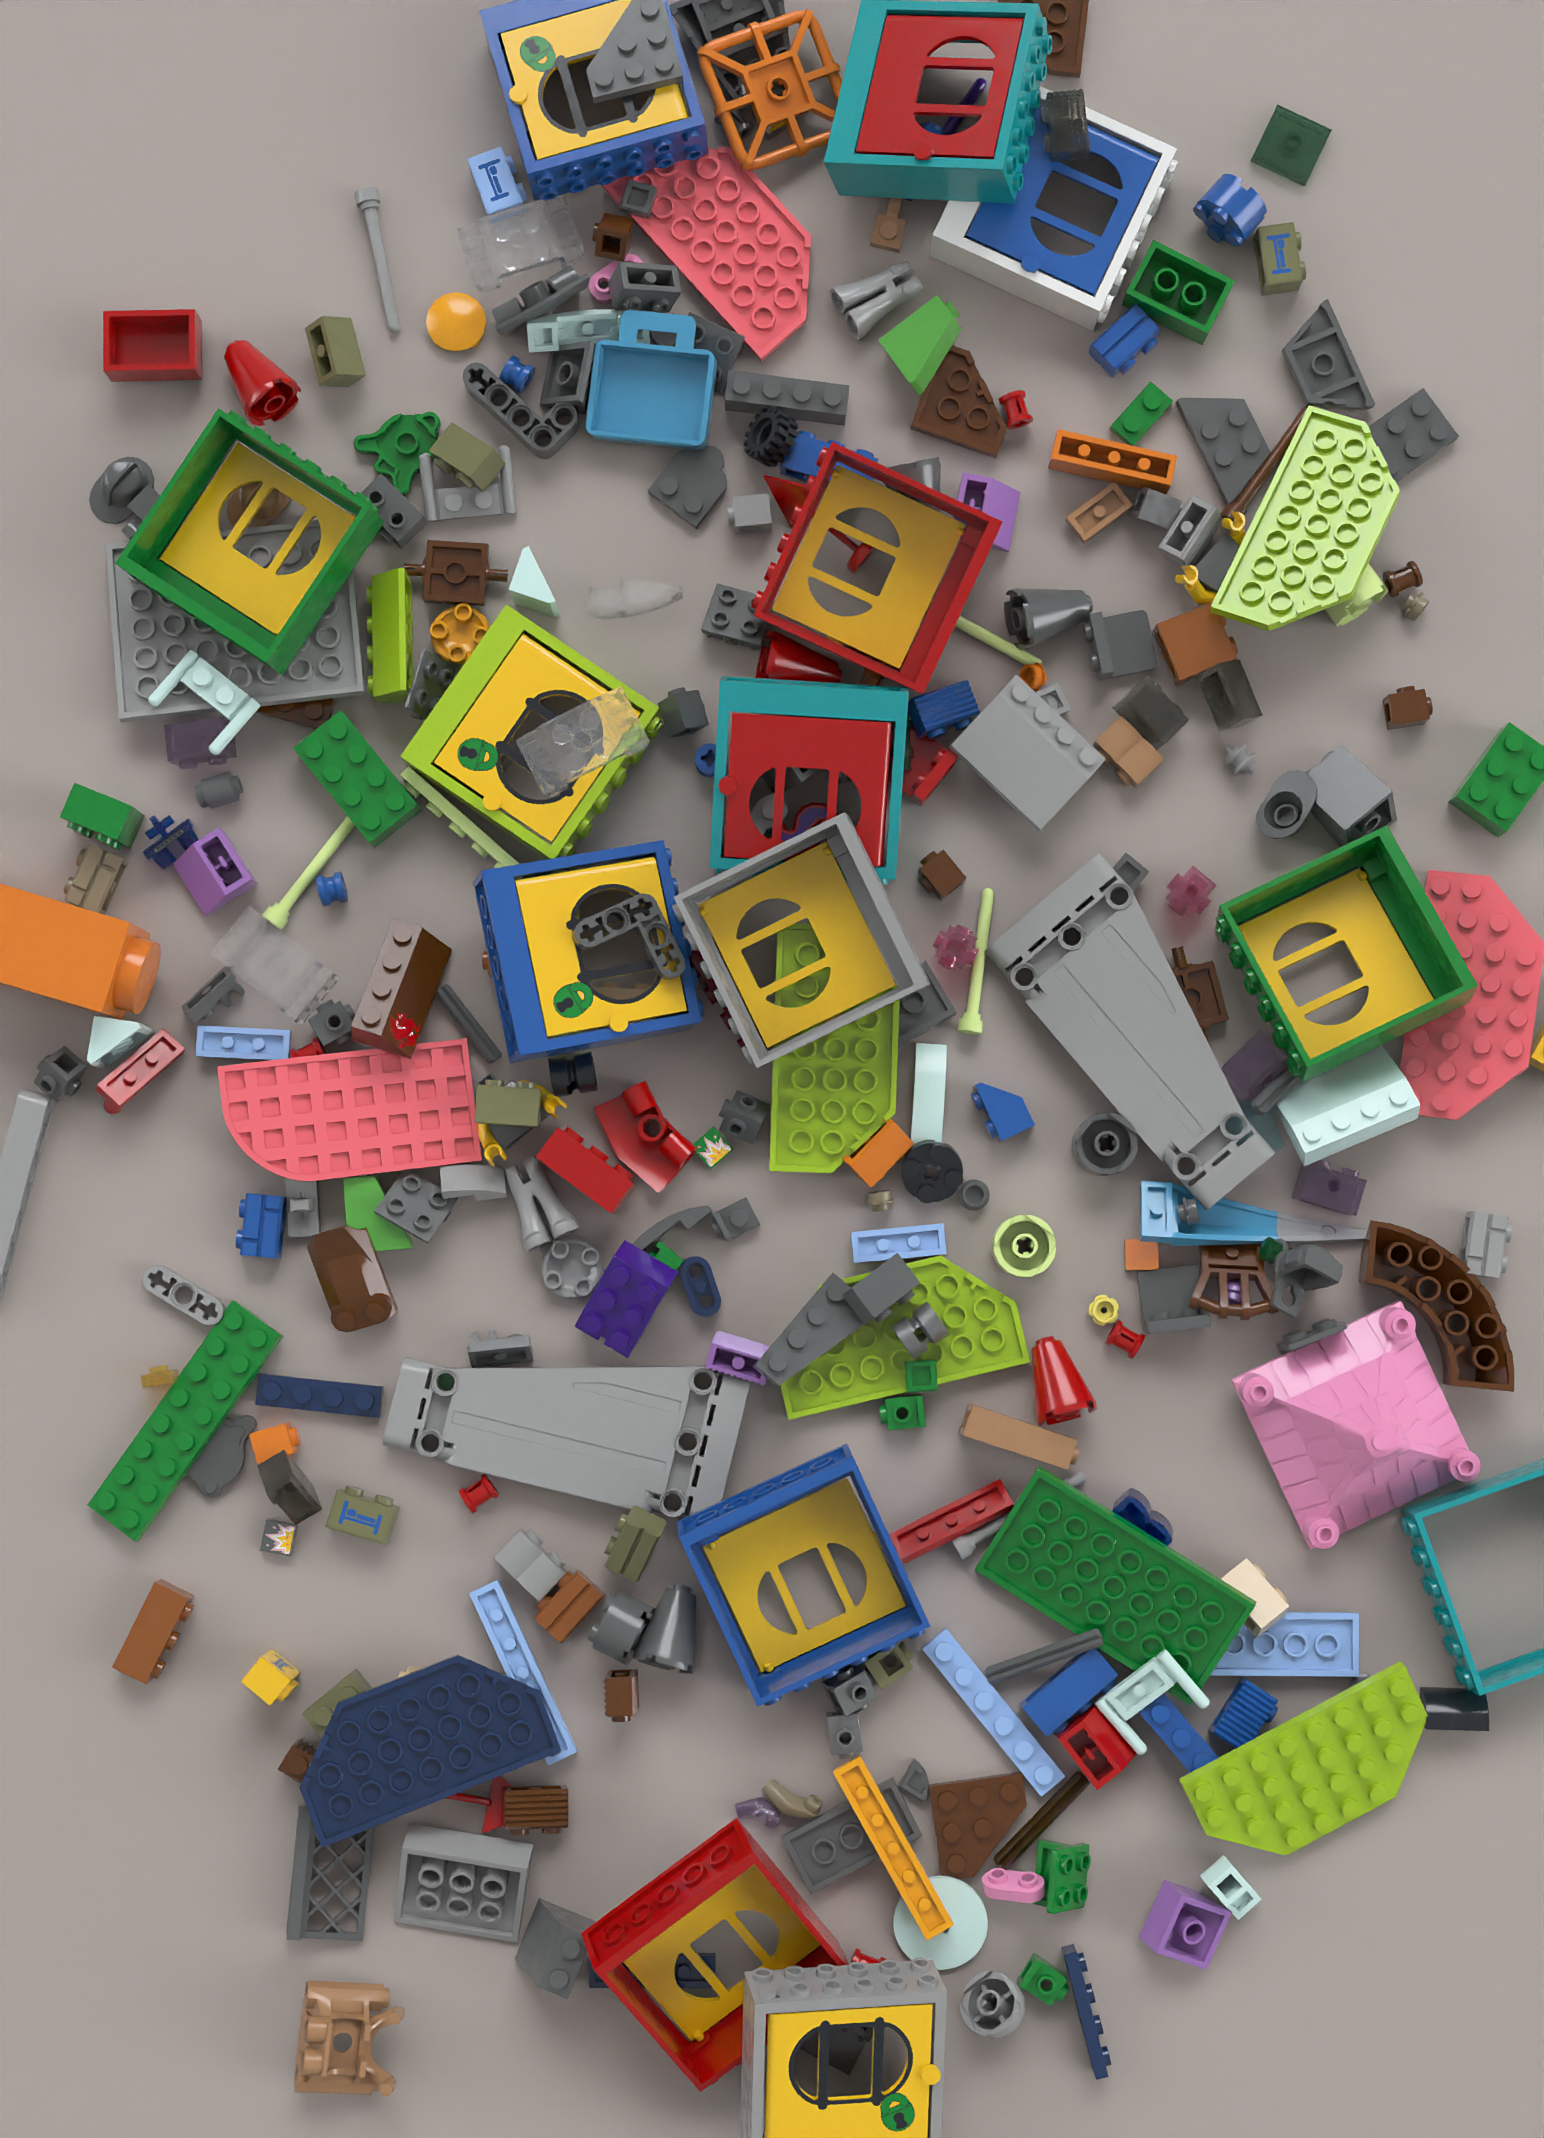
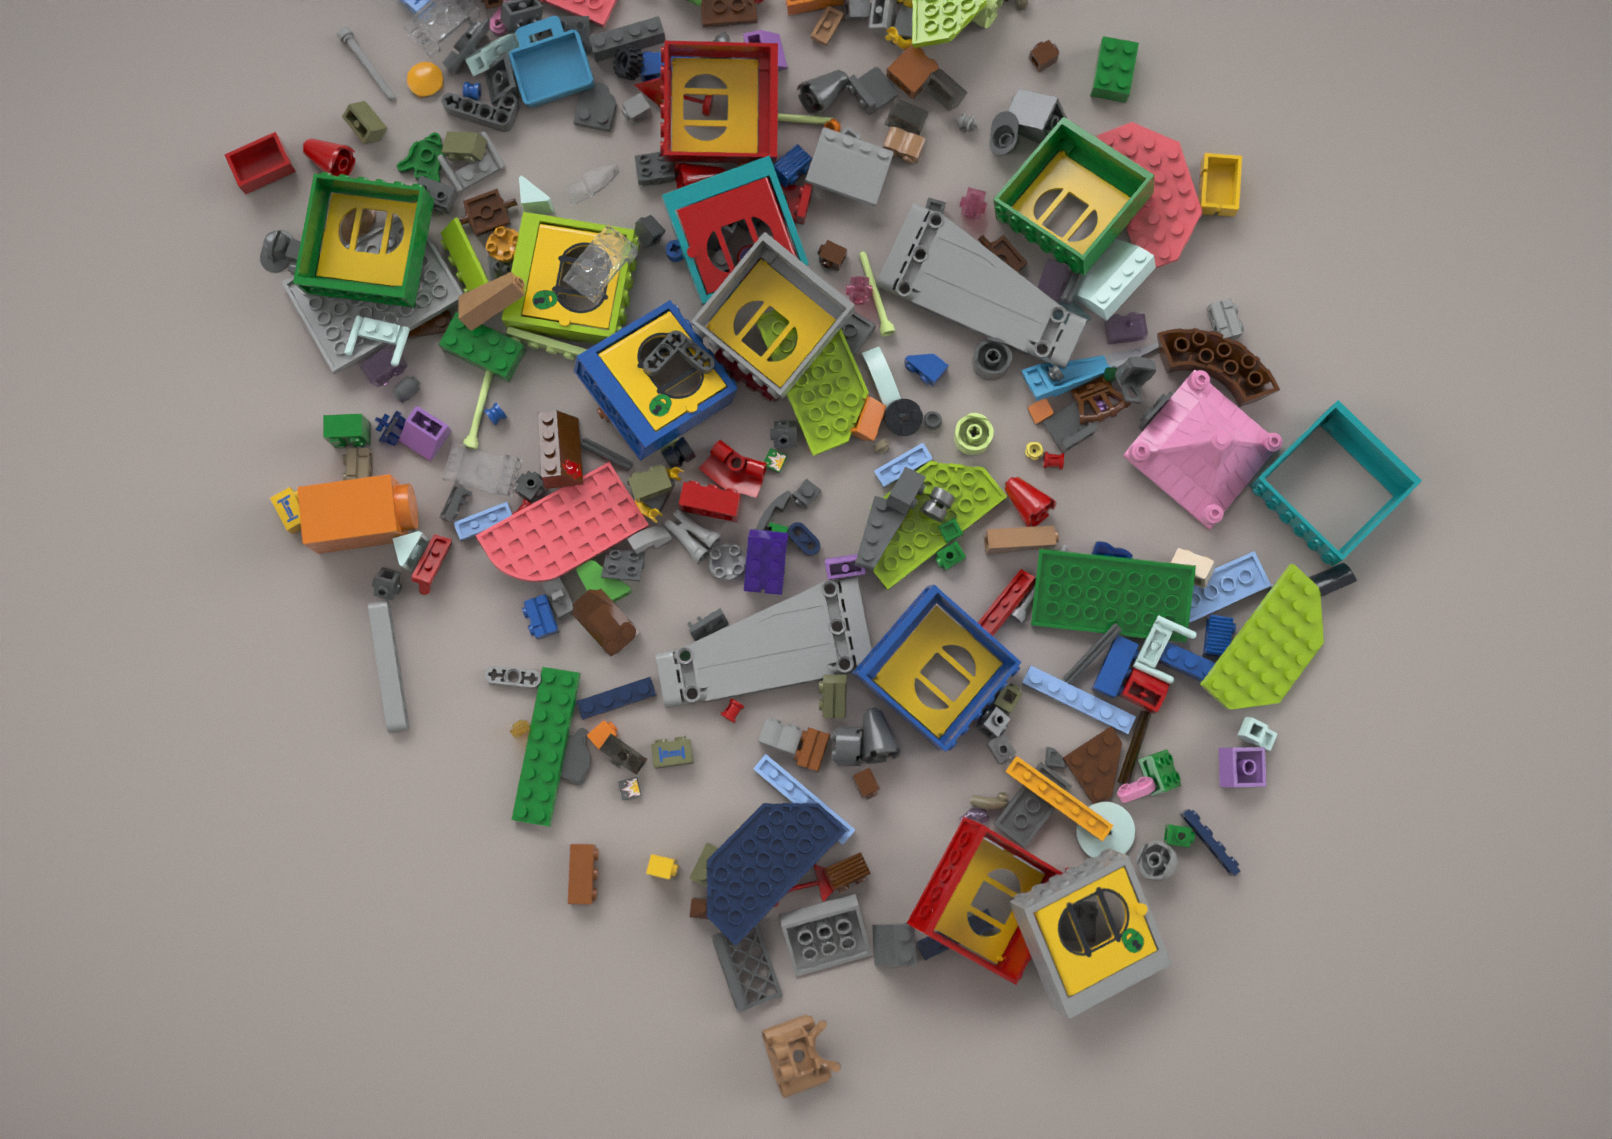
camera: 25 degrees left, 5 degrees down
(393, 720) = (489, 299): none -> medium nougat slope

